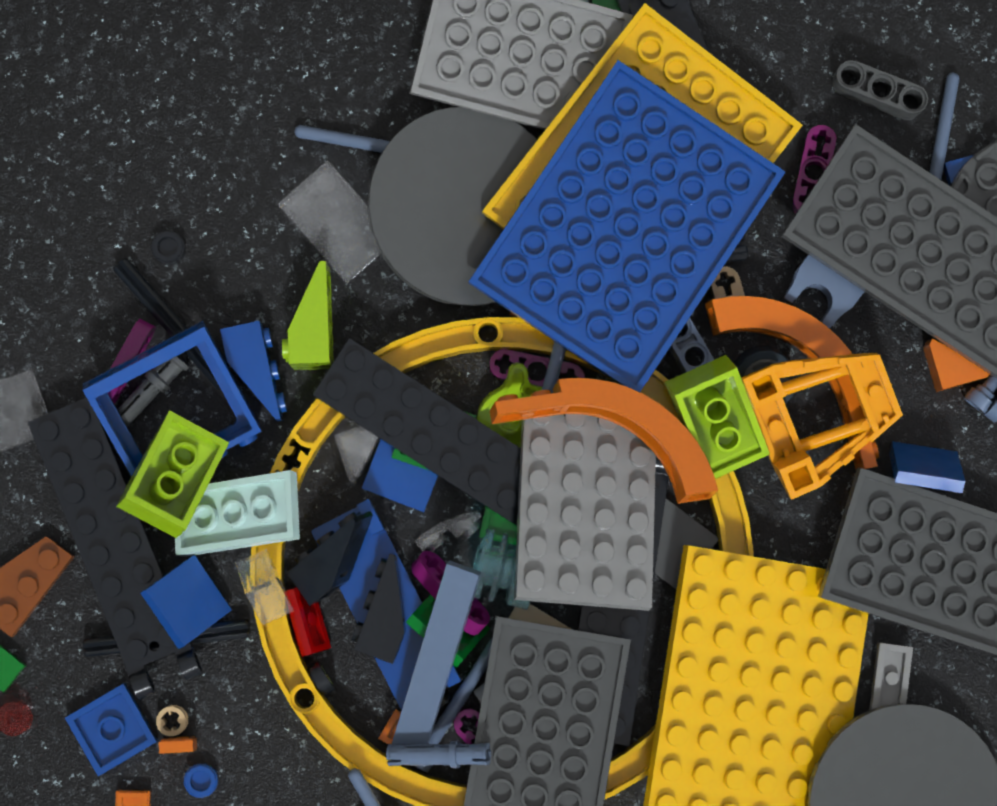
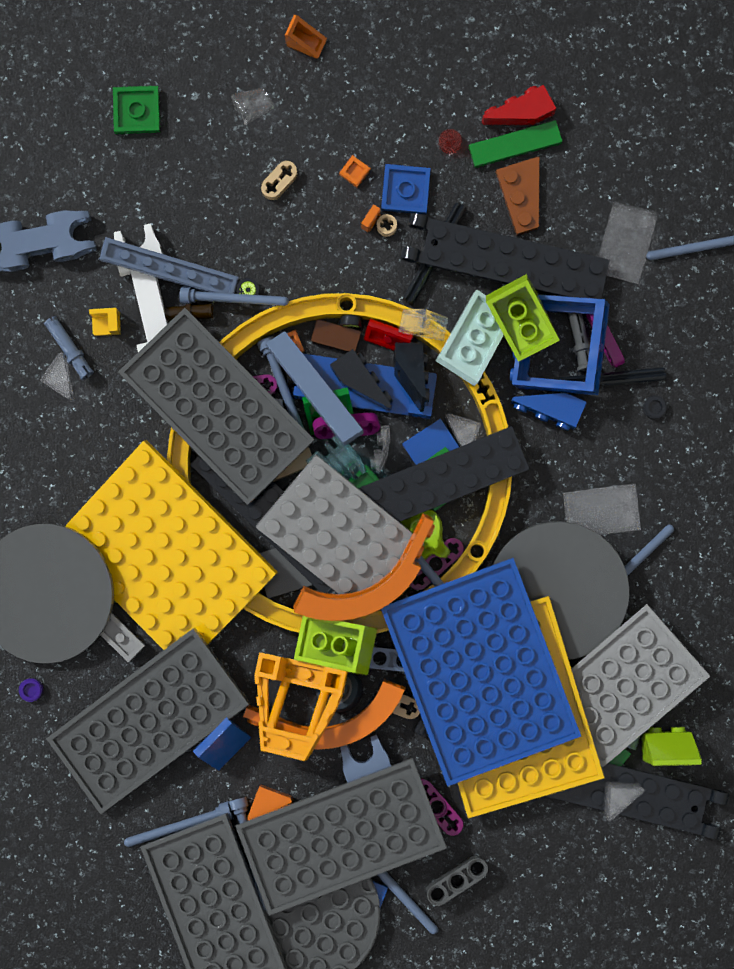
camera: 135 degrees right, 0 degrees up
(186, 601) = (446, 276): blue tile -> none
(201, 780) = (342, 218): blue tile -> none
(311, 329) = (548, 451): lime slope -> none
(351, 684) = (335, 336): none -> reddish brown tile
(439, 754) = (256, 360): sand blue pin -> none

